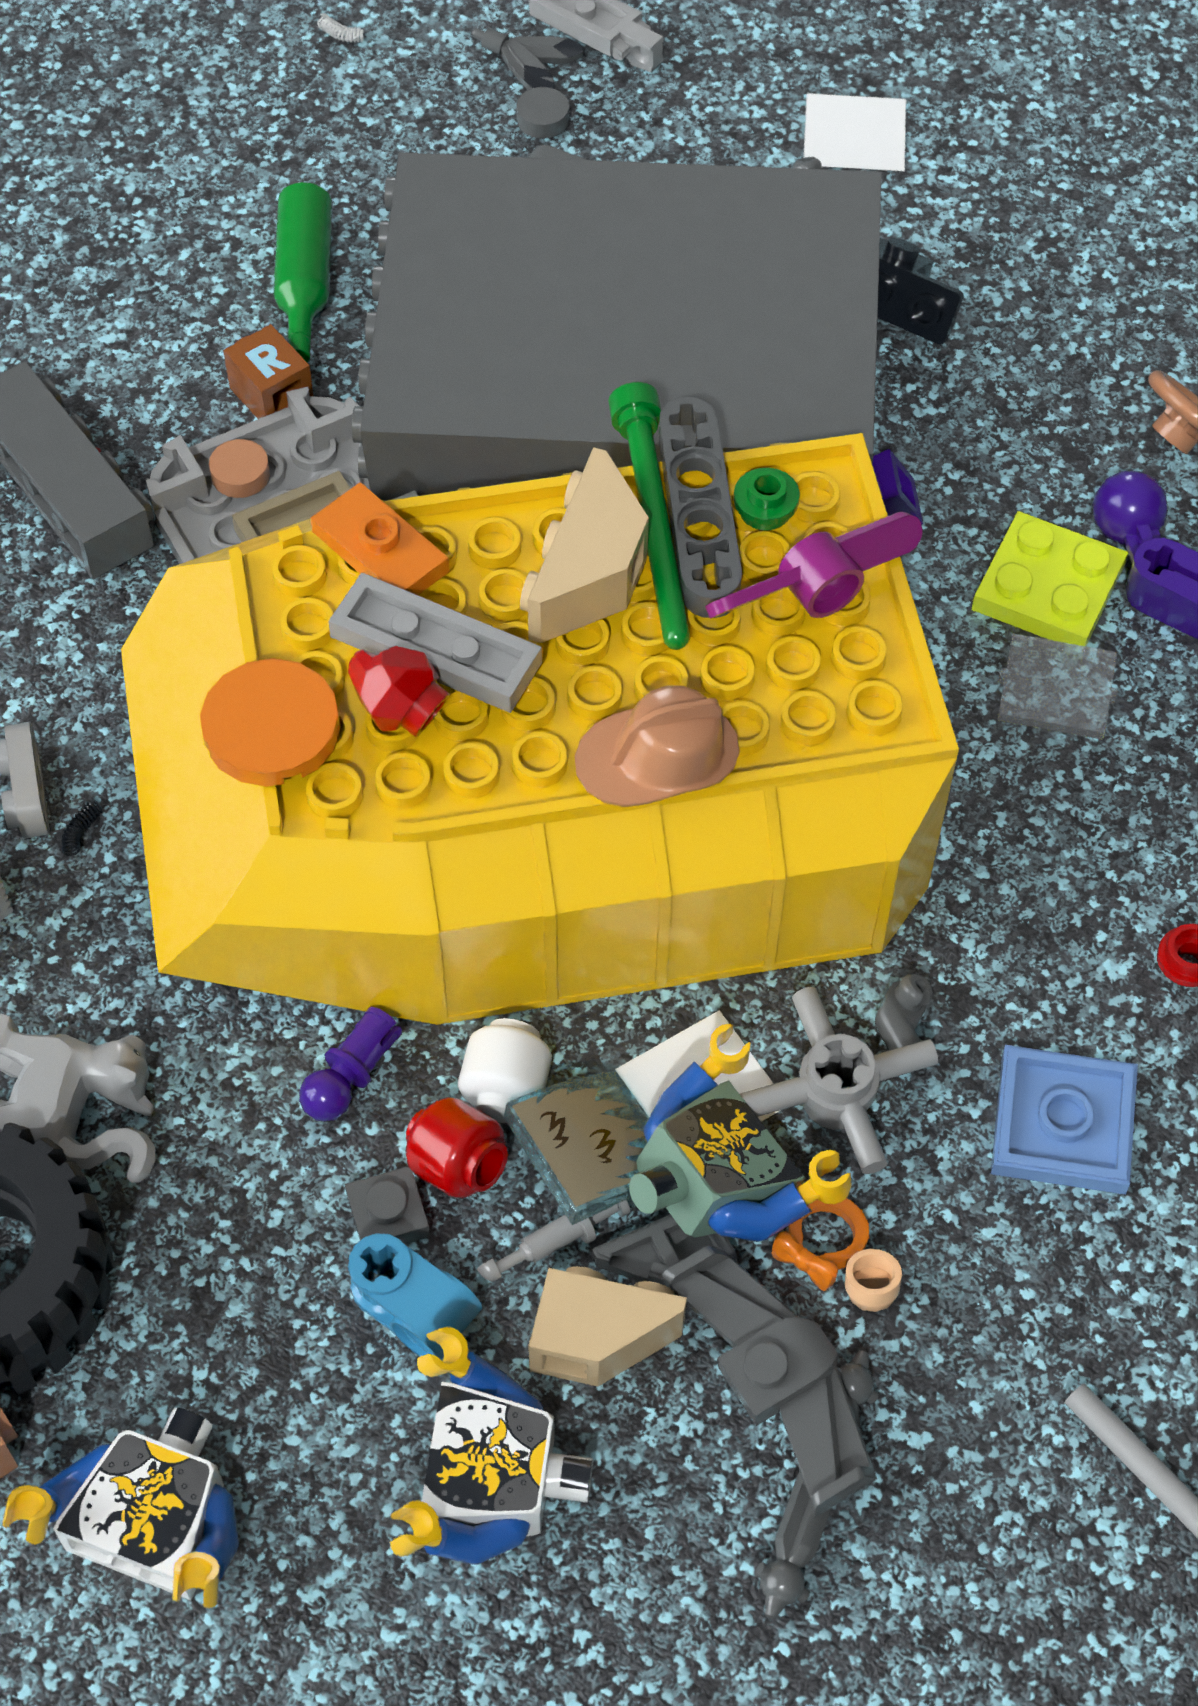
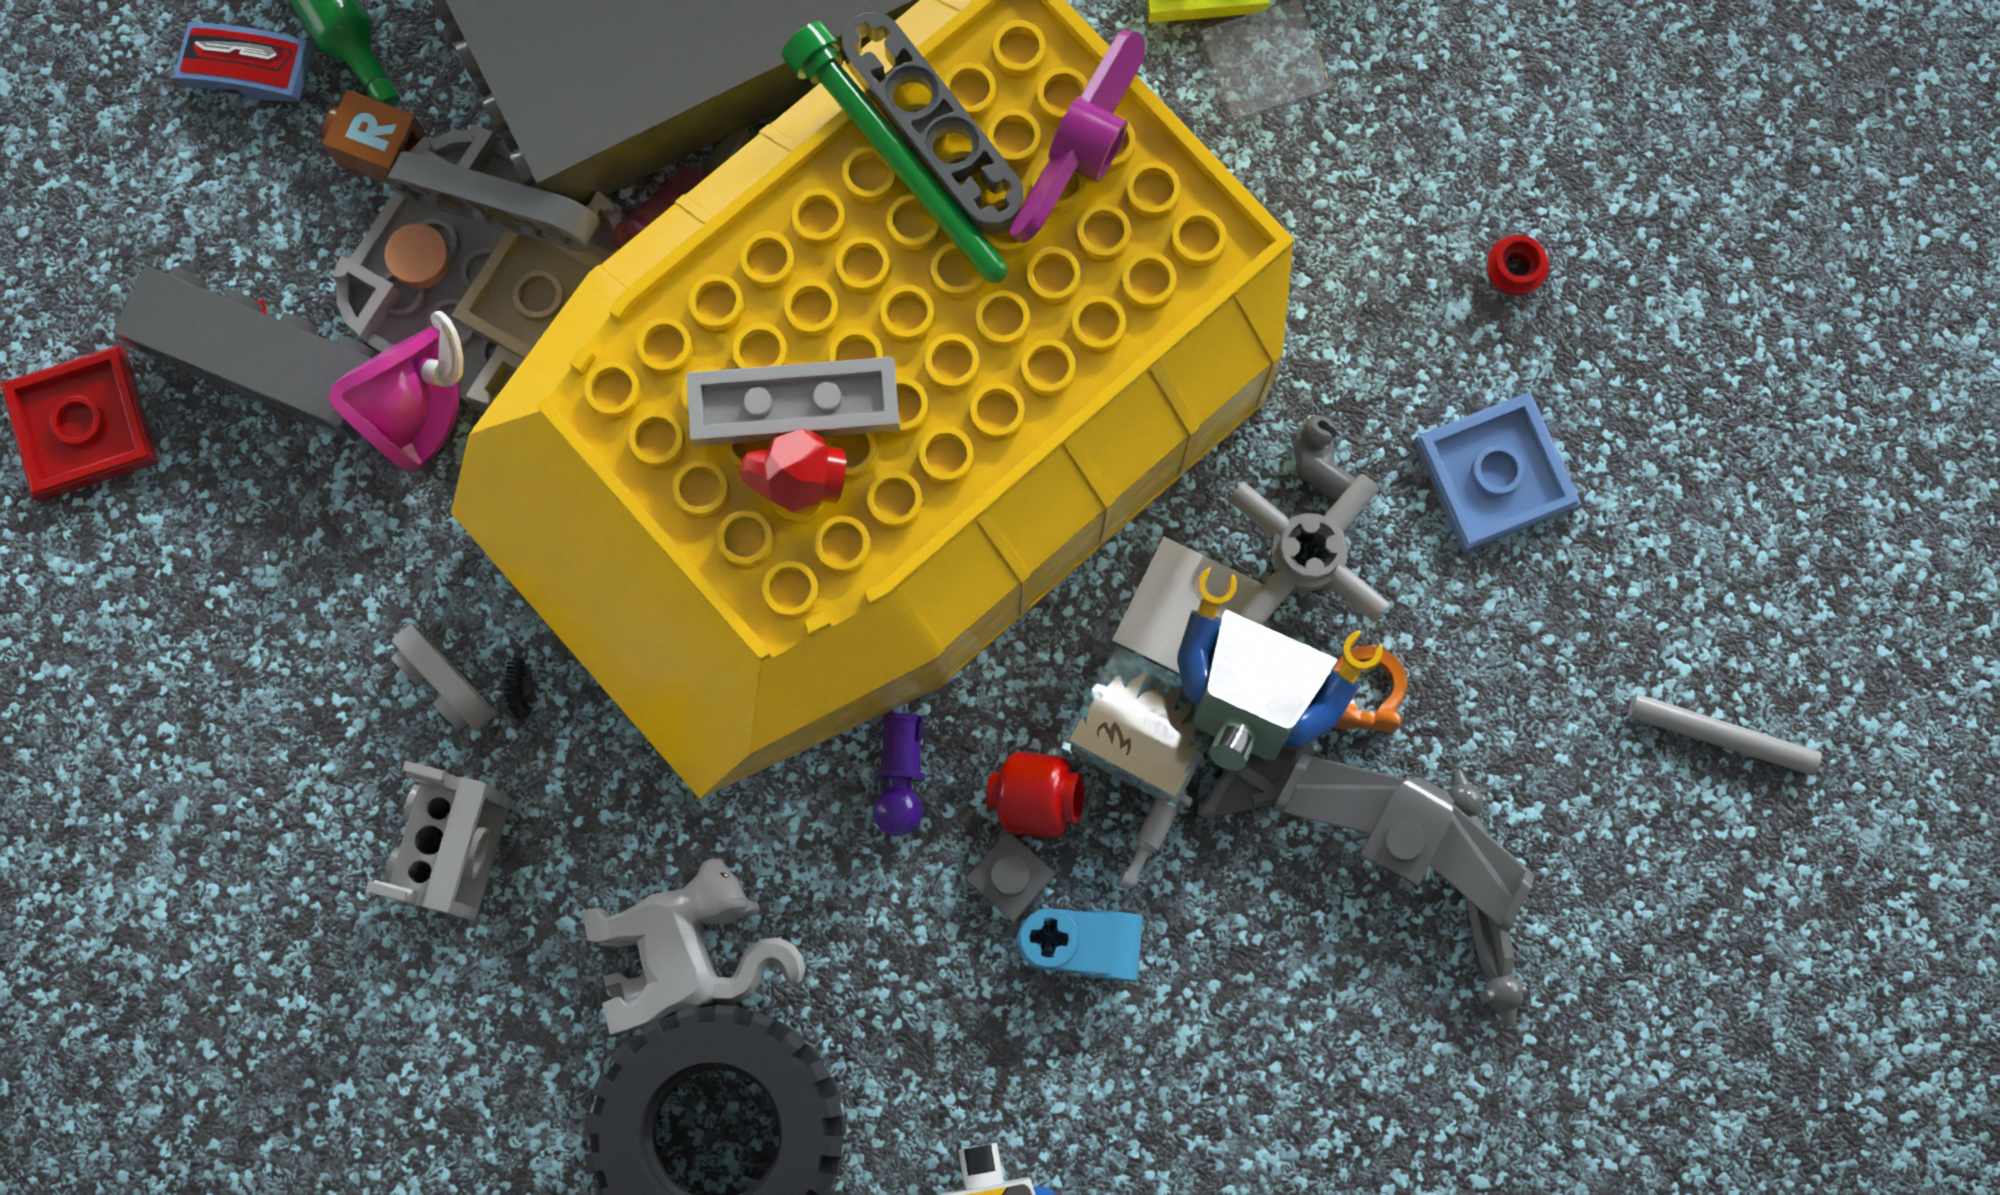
camera: 30 degrees left, 20 degrees up
(140, 540) = (406, 395): none -> dark pink hat
(212, 277) = (245, 60): none -> slope
(269, 721) = (697, 562): orange tile -> none
(320, 442) = (493, 201): none -> dark grey beam
(379, 541) = (673, 326): orange plate -> none
(485, 1462) = (1232, 1044): torso -> none
(503, 1065) = (1031, 701): white head -> none
(589, 555) = (874, 229): tan slope -> none
(600, 1327) = (1244, 879): tan slope -> none
(658, 749) = (1046, 394): nougat piece -> none
(768, 510) = (987, 99): green plate -> none
(873, 1279) = (1423, 698): light nougat hinge -> none

